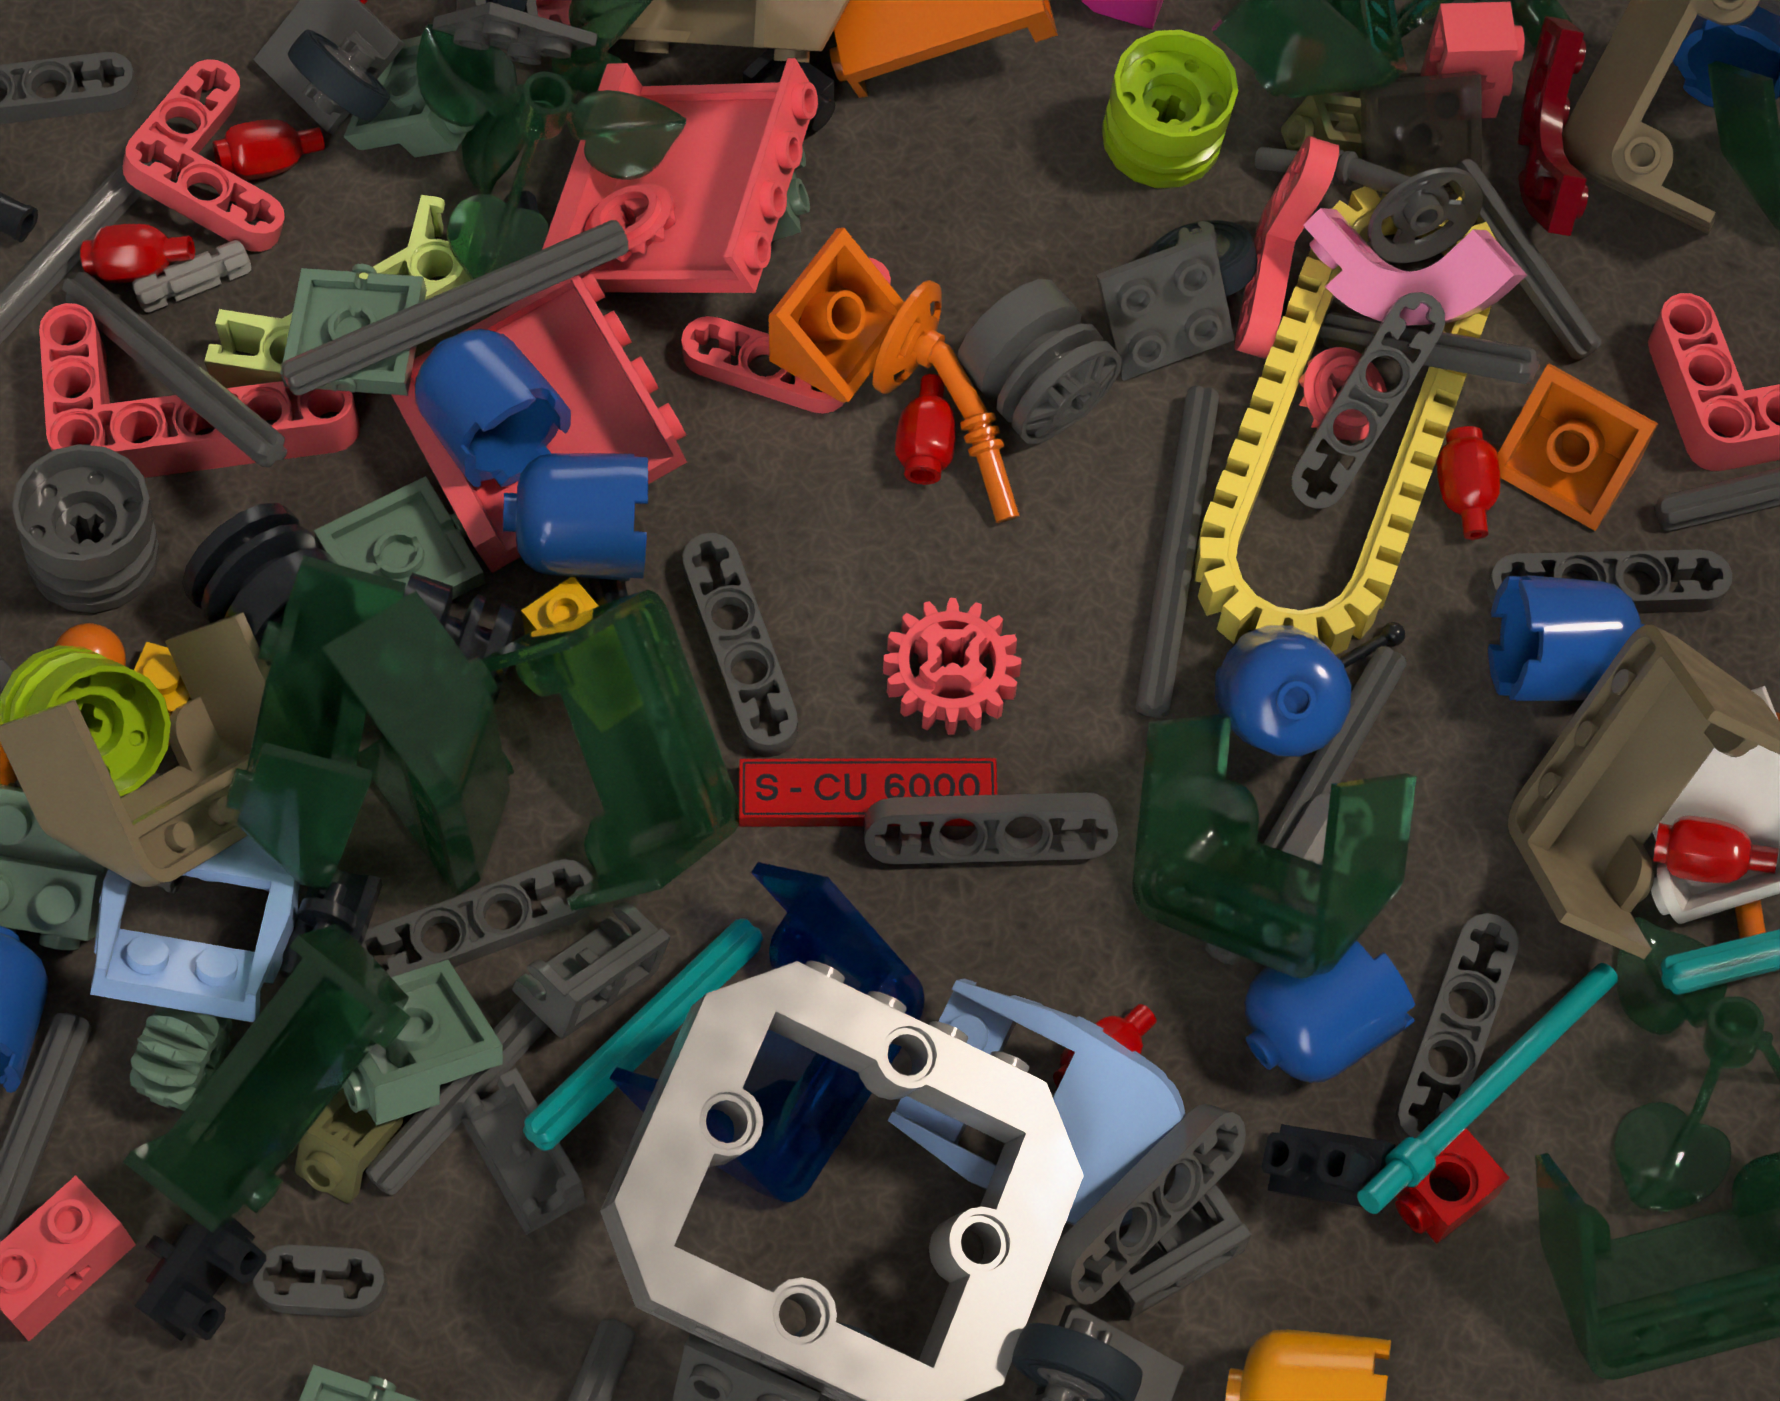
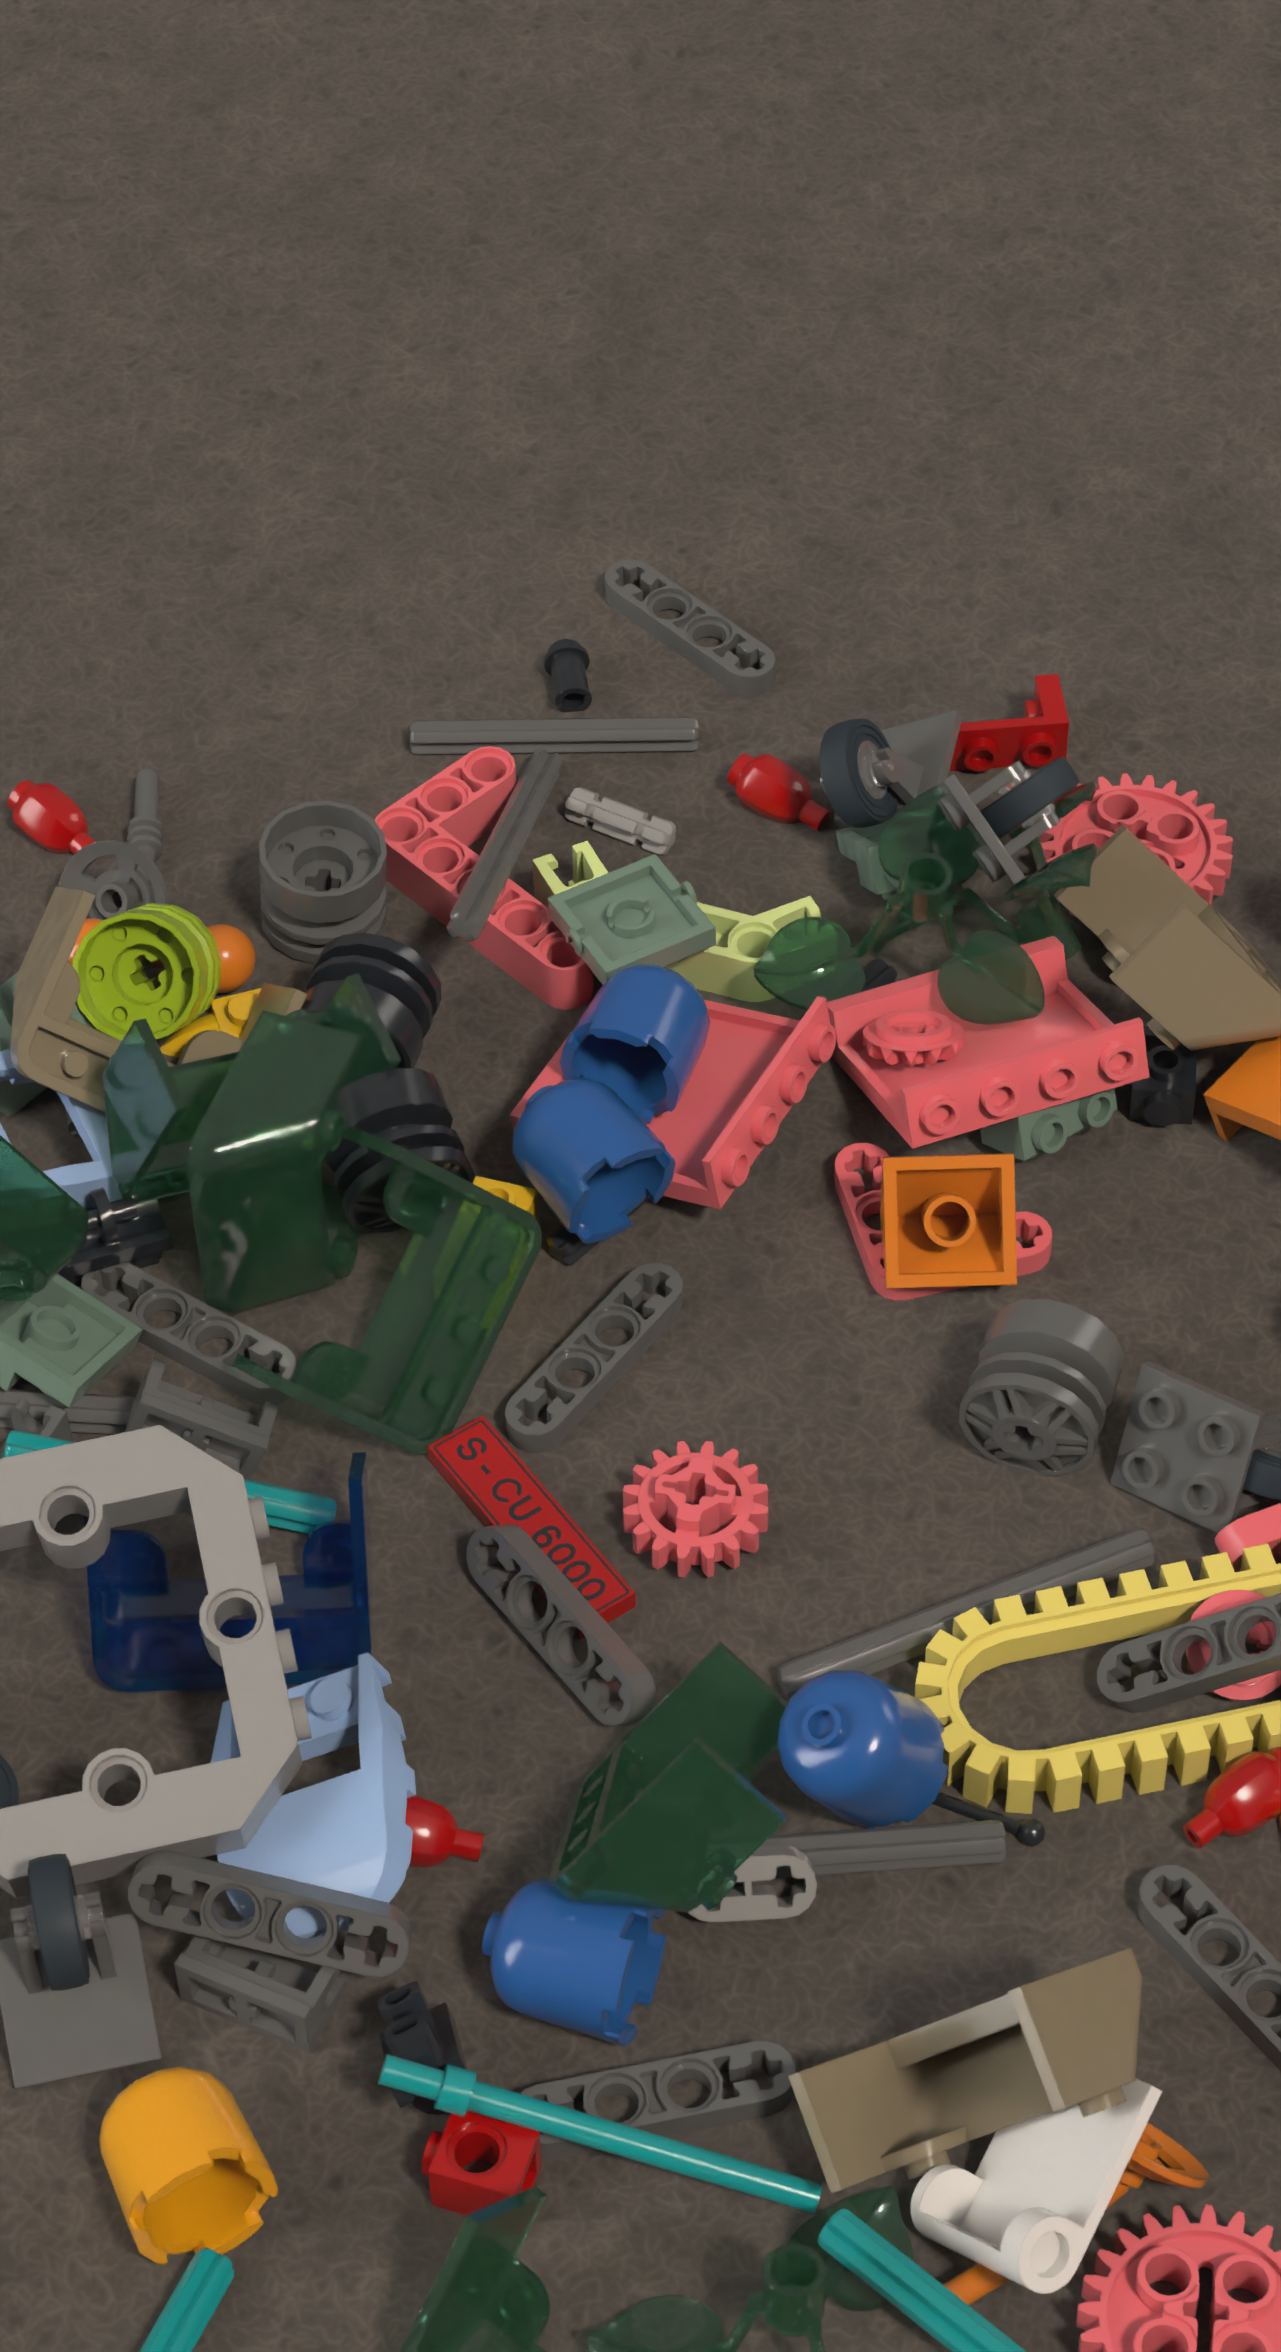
camera: 60 degrees right, 15 degrees down
(132, 252) = (600, 769): red plant -> none
(181, 154) = (717, 741): coral beam -> none
(404, 536) = (482, 1084): sand green plate -> none
(454, 307) = (701, 958): dark grey axle -> none
(915, 342) = (975, 1297): orange dish -> none
(926, 433) = (911, 1363): red plant -> none
(1557, 636) = (1122, 1910): blue cylinder -> none
(1710, 850) = (985, 2177): red plant -> none

